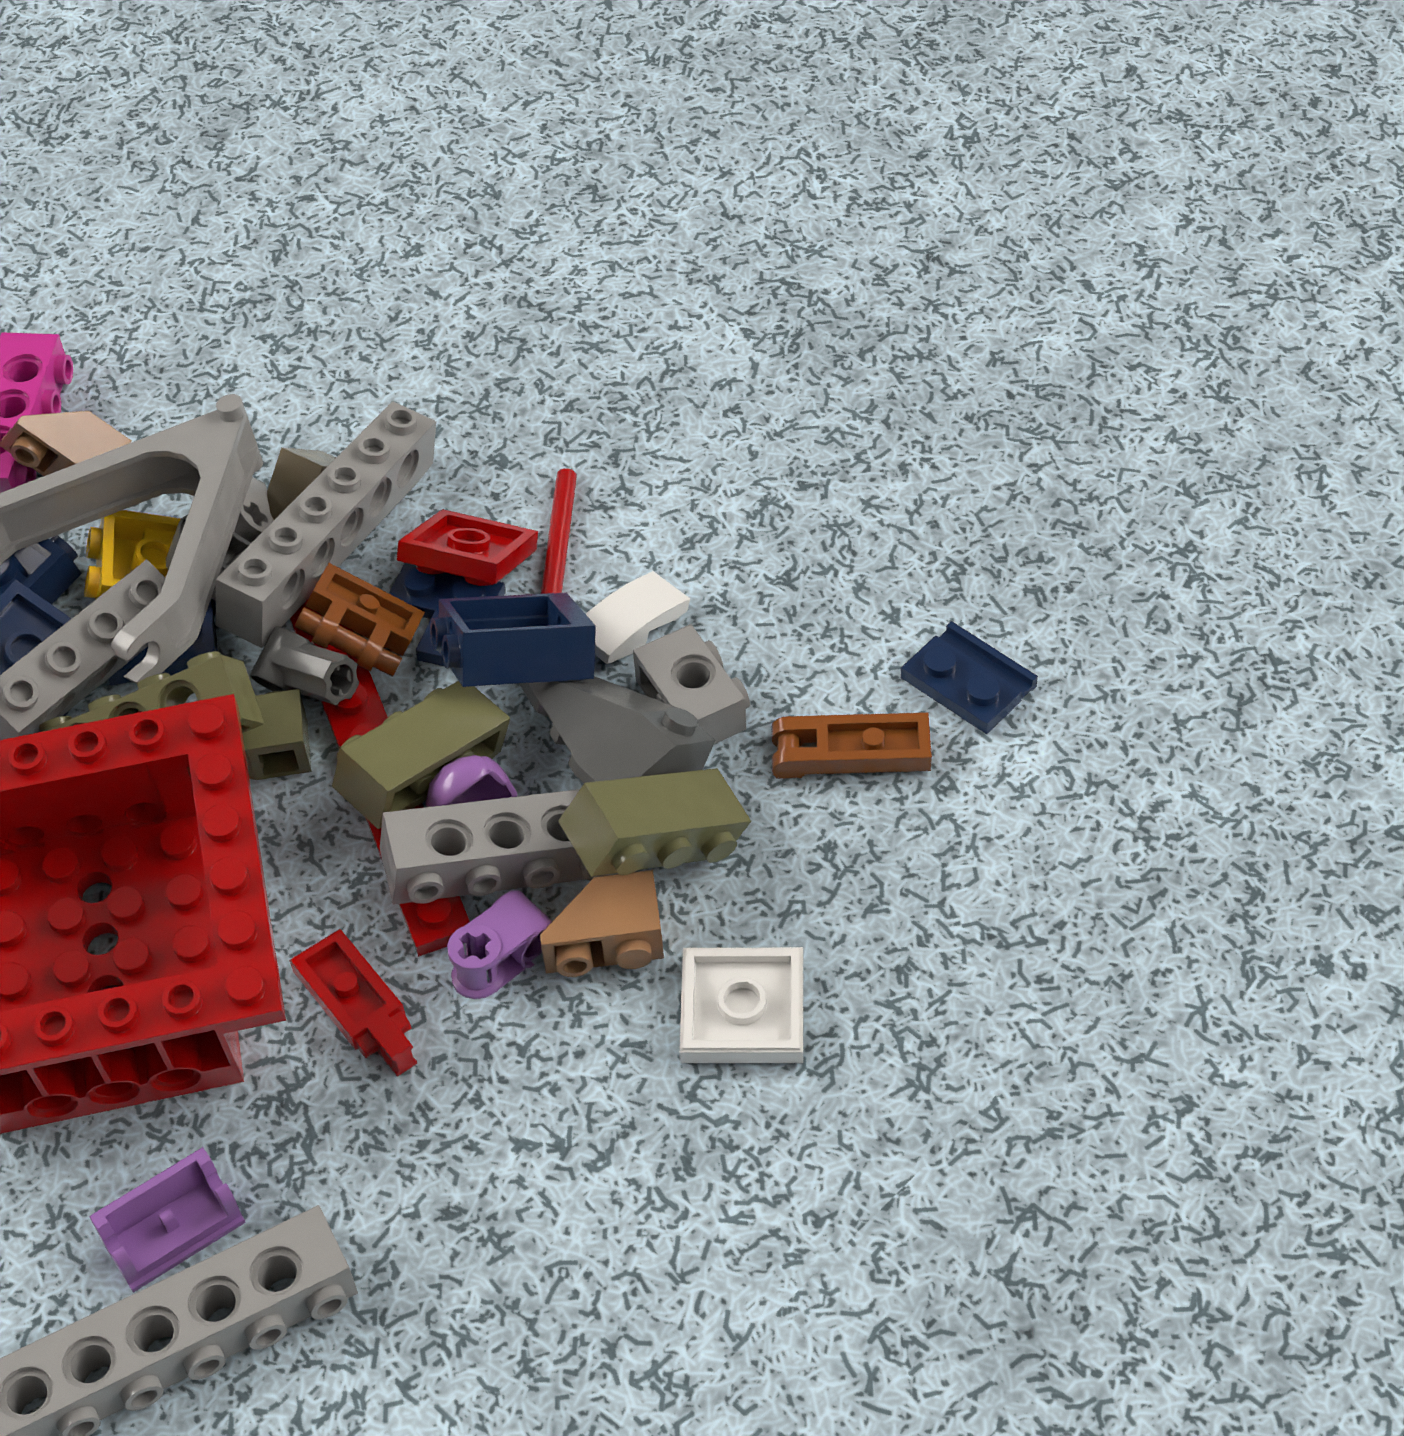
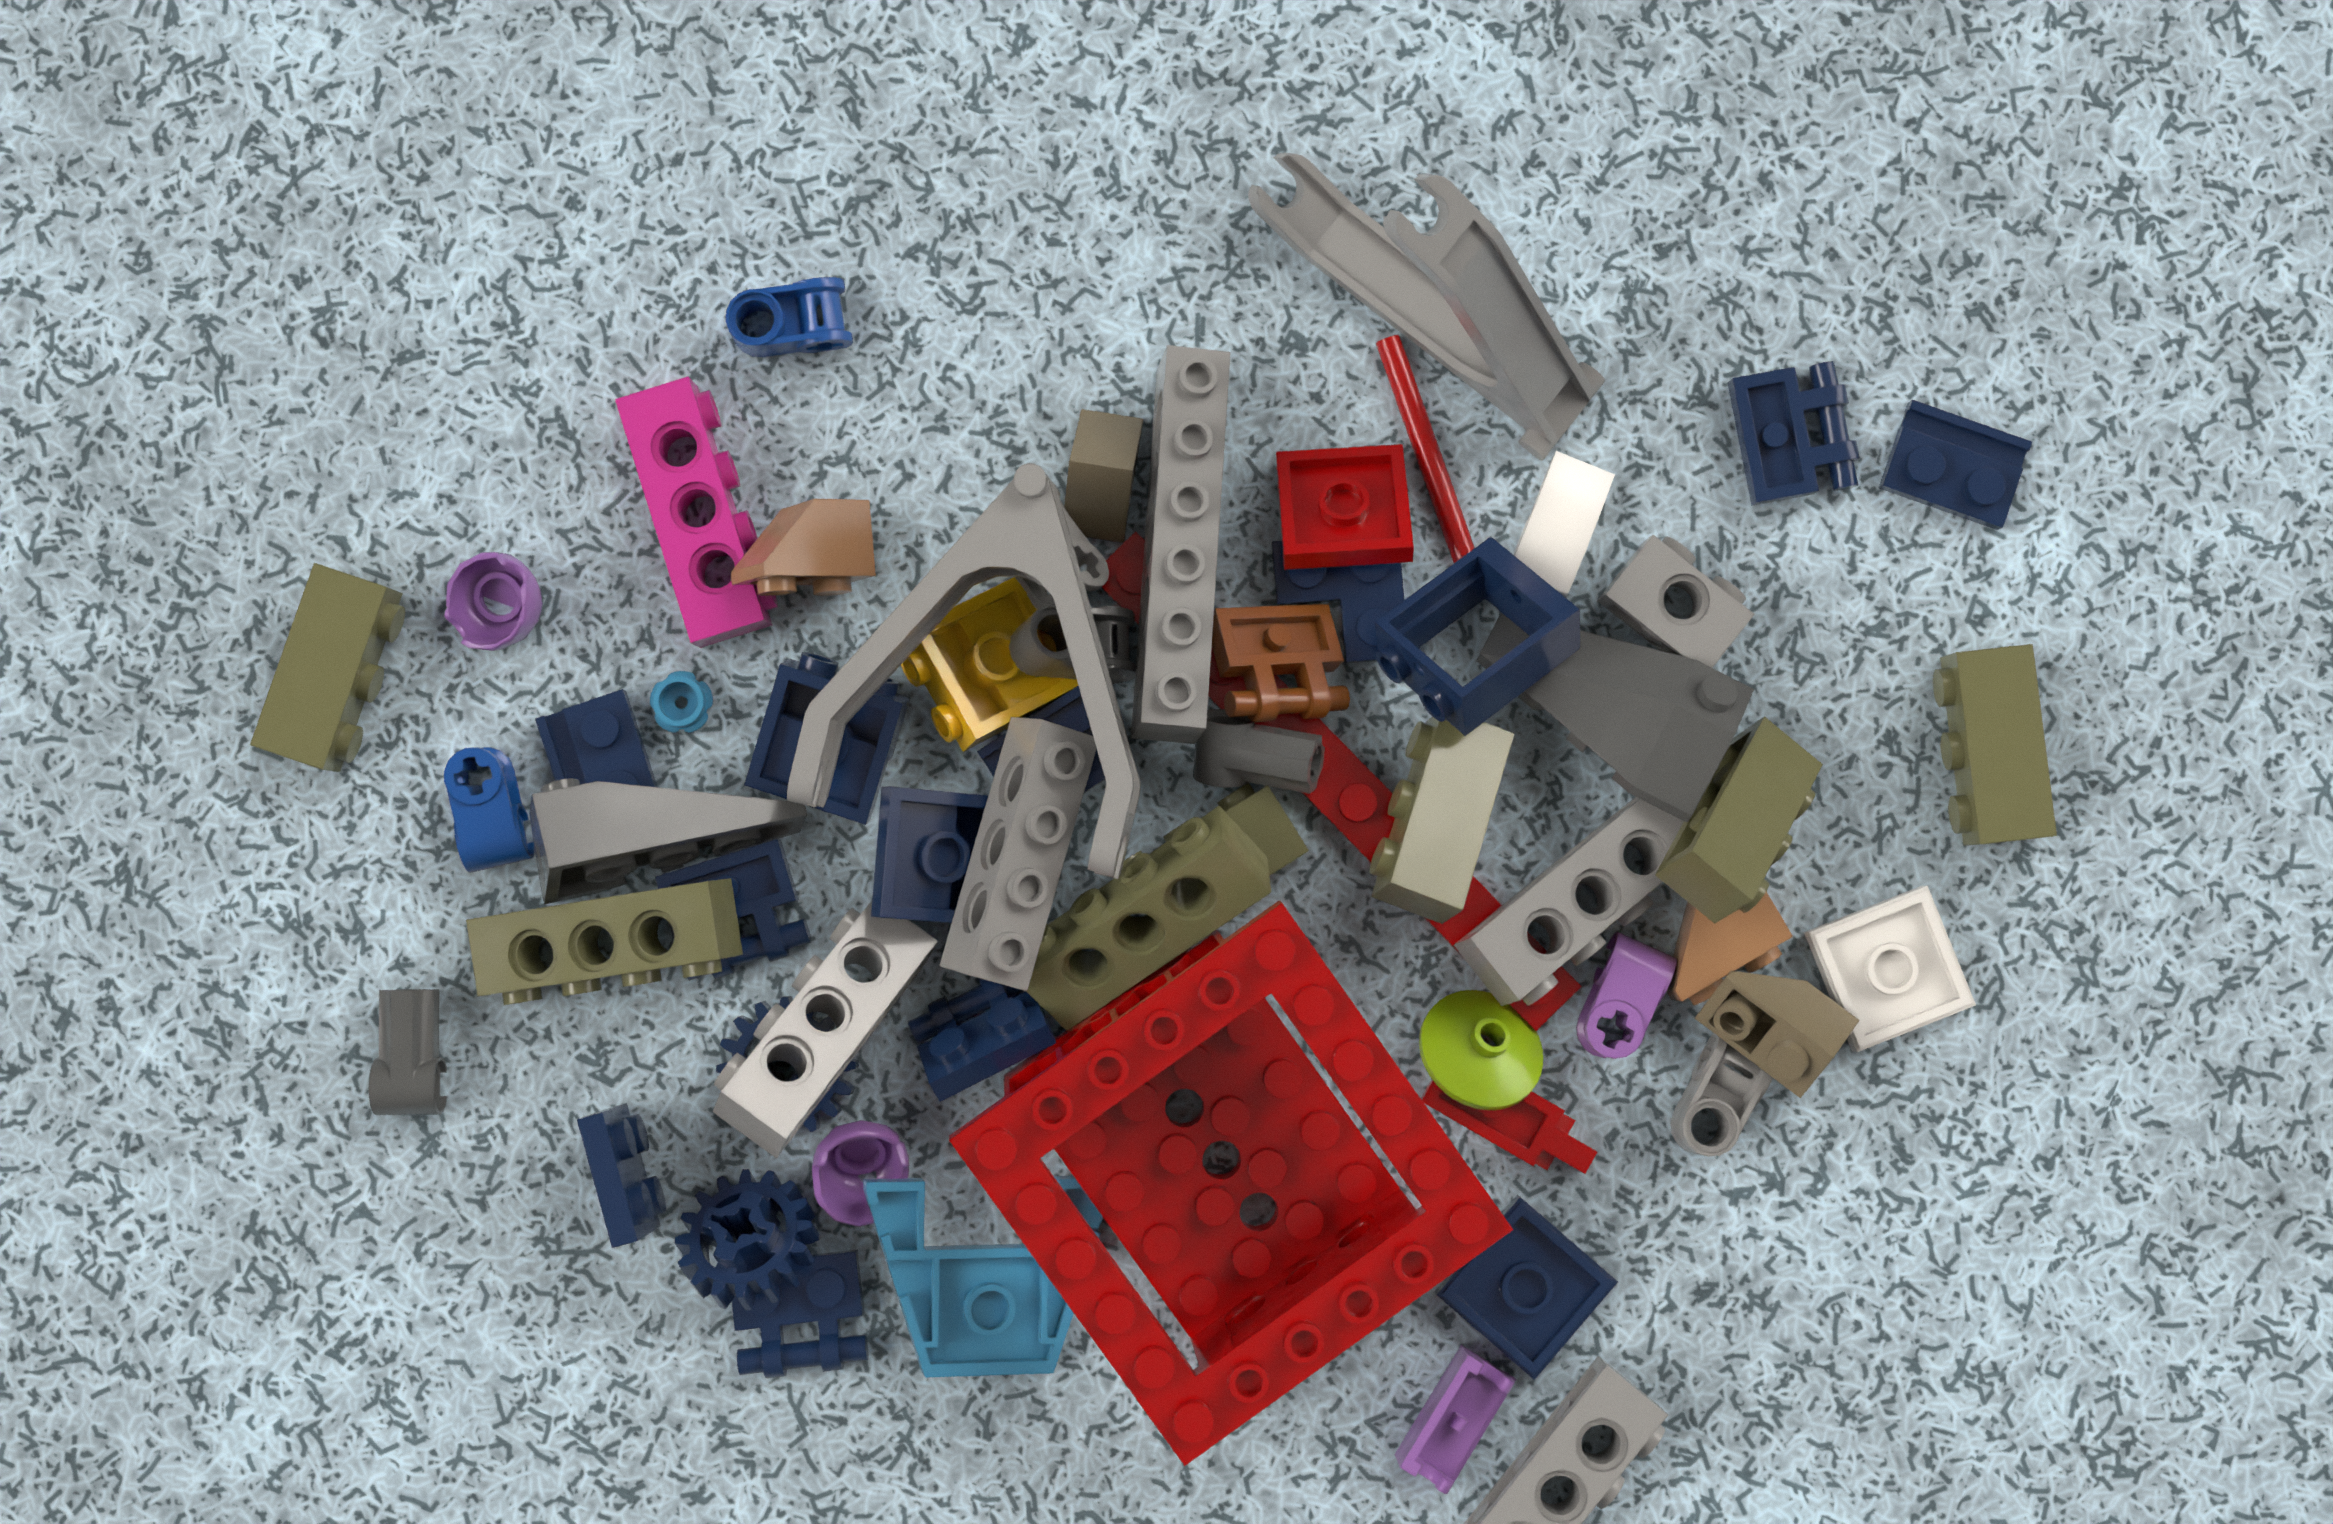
camera: 25 degrees left, 35 degrees up
(148, 336) = (795, 318): none -> blue piece
(294, 1141) = (1528, 1289): none -> dark blue plate
(359, 939) = (1469, 1067): none -> lime dish
(469, 780) = (1512, 841): medium lavender hair -> none
(551, 1043) = (1721, 1091): none -> light grey piece
(614, 424) = (1445, 291): none -> light grey piece
(618, 997) = (1778, 1025): none -> dark tan slope
(828, 612) = (1776, 438): none -> dark blue plate
(851, 744) = (1873, 606): dark orange plate -> none
(908, 867) = (1995, 745): none -> olive brick

